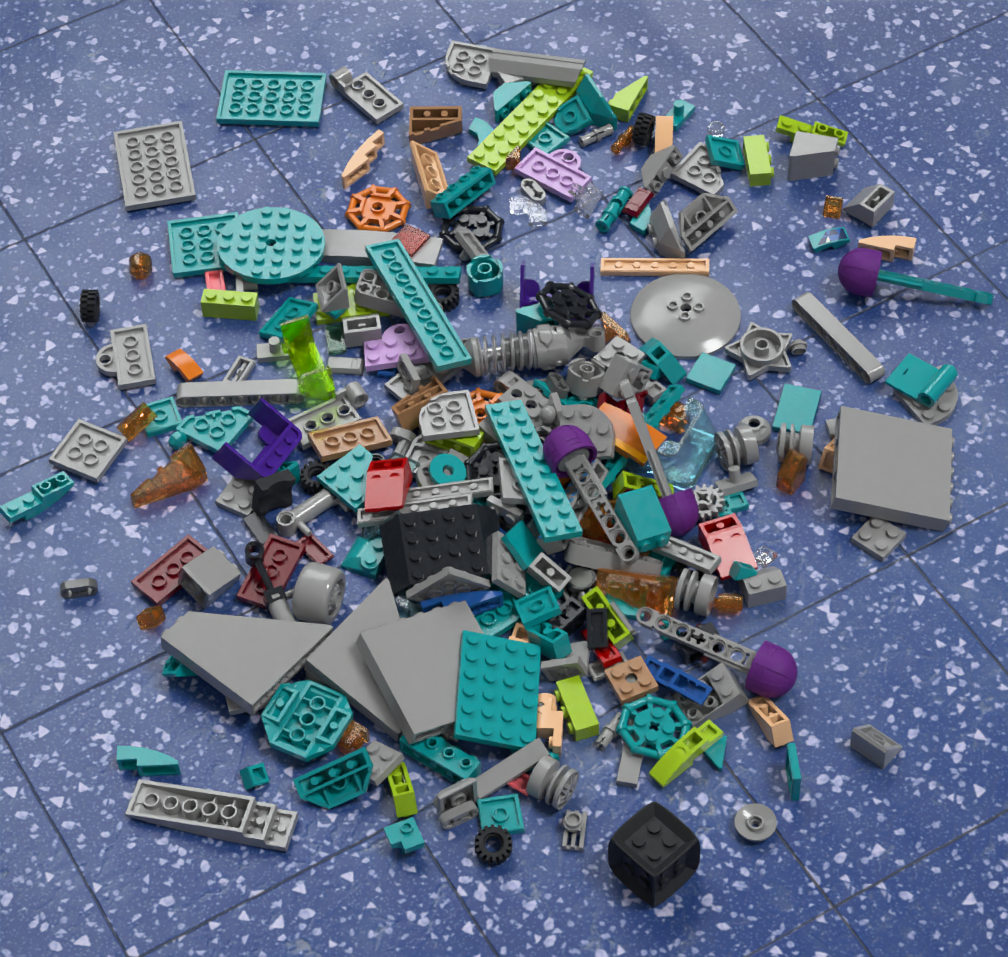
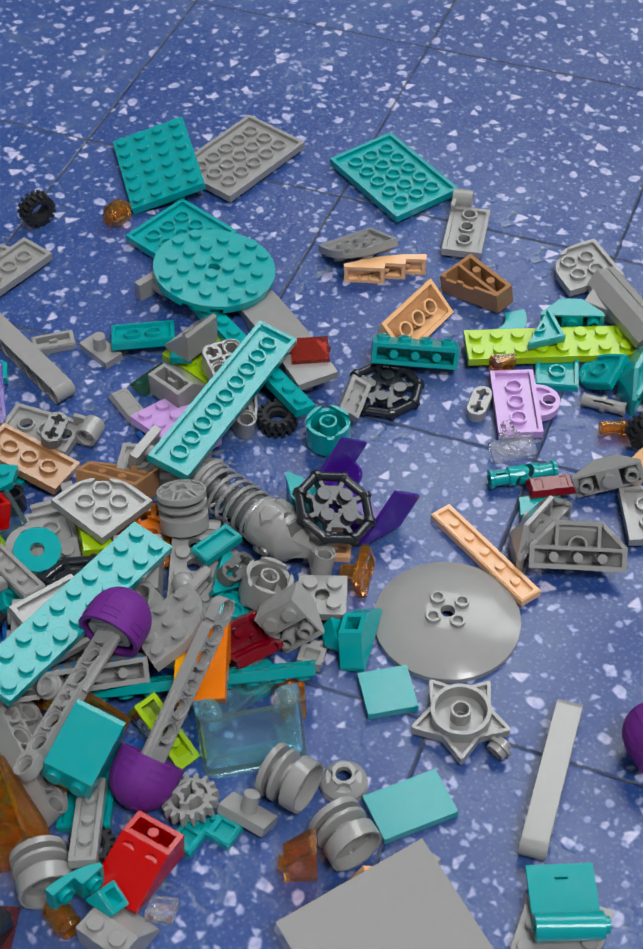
camera: 50 degrees right, 5 degrees down
(113, 212) = (158, 165): none -> teal plate
(183, 363) = (26, 303): orange slope -> none
(215, 280) = (139, 269): coral tile -> none
(230, 304) = (123, 288): lime brick -> none
(299, 344) = (96, 377): clear neon green windscreen -> none
(328, 157) = (358, 244): none -> light grey plate
(342, 409) = (49, 429): none -> beam
(381, 198) = (349, 310): orange plate -> none
(490, 378) = (182, 508): none -> light grey wheel
(516, 117) = (547, 332): none -> teal tile
(525, 205) = (456, 417): clear tile -> none
(531, 382) = (216, 544): none -> teal tile
(582, 511) = (49, 686): none -> light grey plate
(724, 578) = (80, 881): none -> teal slope

